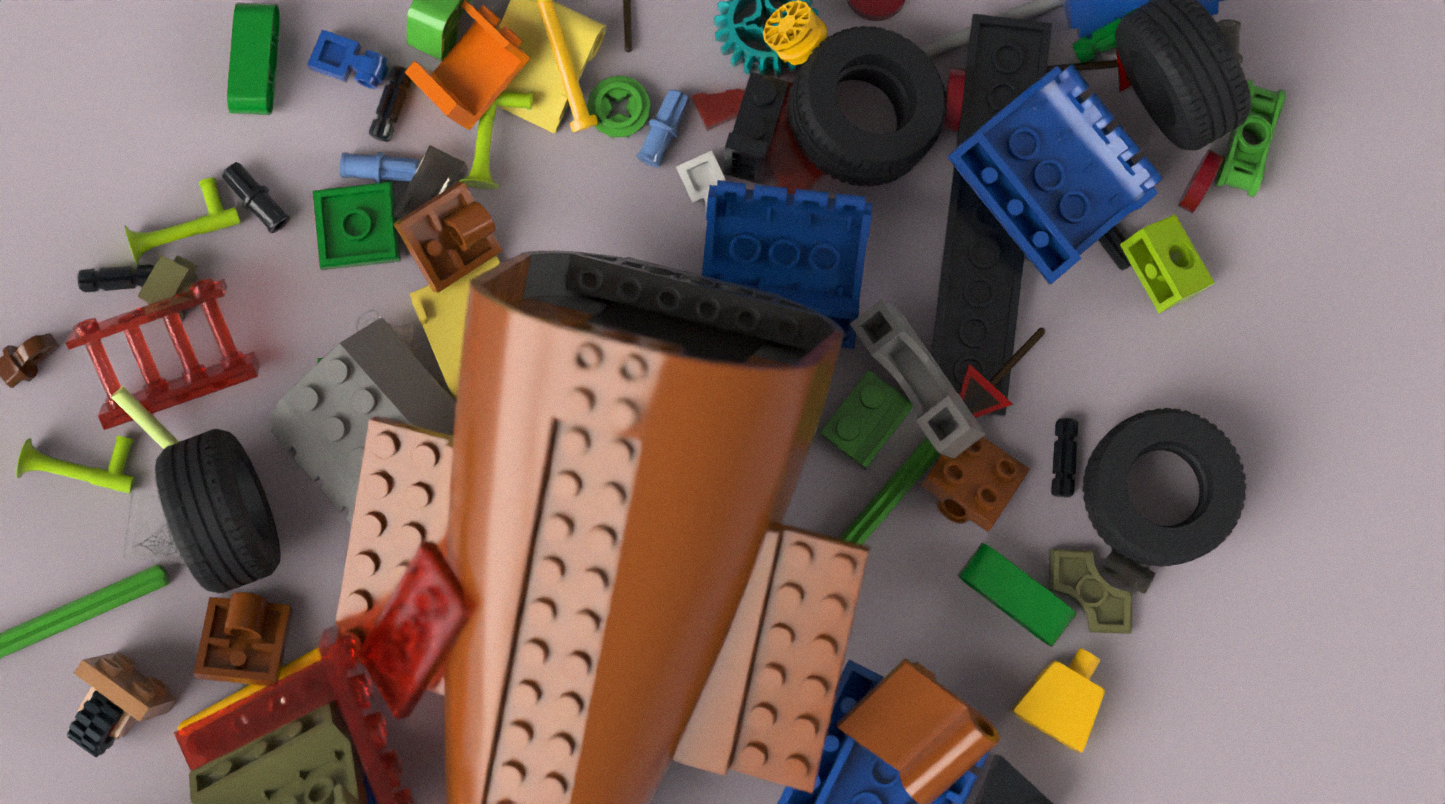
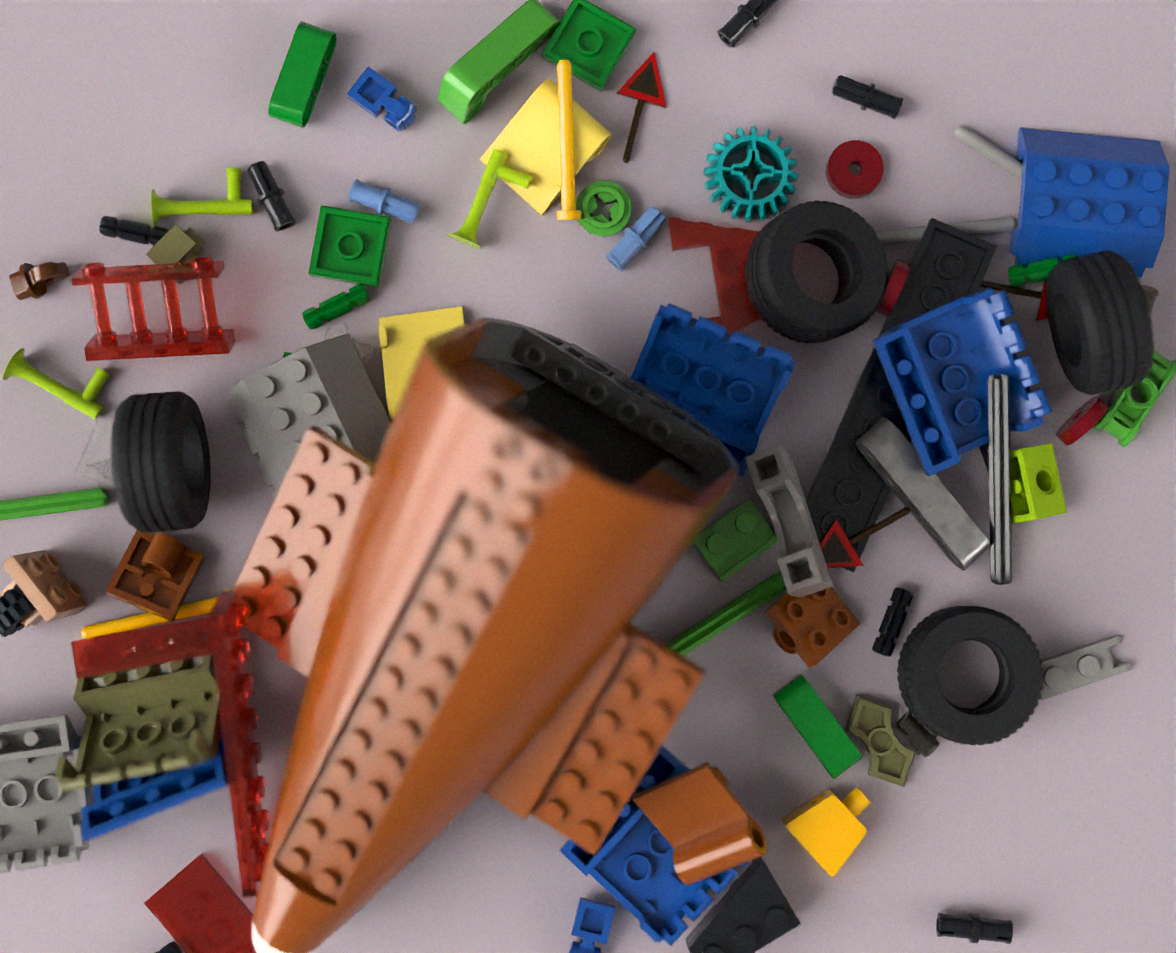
camera: 10 degrees right, 5 degrees up
(143, 417) = (123, 362): yellowish green bar -> none
(359, 295) = (336, 306): none -> green axle
(390, 104) = (409, 148): black axle -> none
(416, 629) = (297, 622): clear red tile -> none
(433, 176) = (422, 234): clear smoke slope -> none
(449, 236) = (425, 279): dark orange plate -> none
(474, 69) = (487, 140): orange panel -> none
(699, 174) = (656, 290): white plate -> none
(754, 128) = (714, 261): black bracket -> none
(796, 32) = (773, 192): yellow wheel -> none
(1054, 308) = (924, 495): none -> flat silver beam
(1131, 268) = (1000, 479): none -> axle
(1255, 765) = (974, 928): none -> black pin
(1281, 448) = (1080, 667): none -> light grey hinge

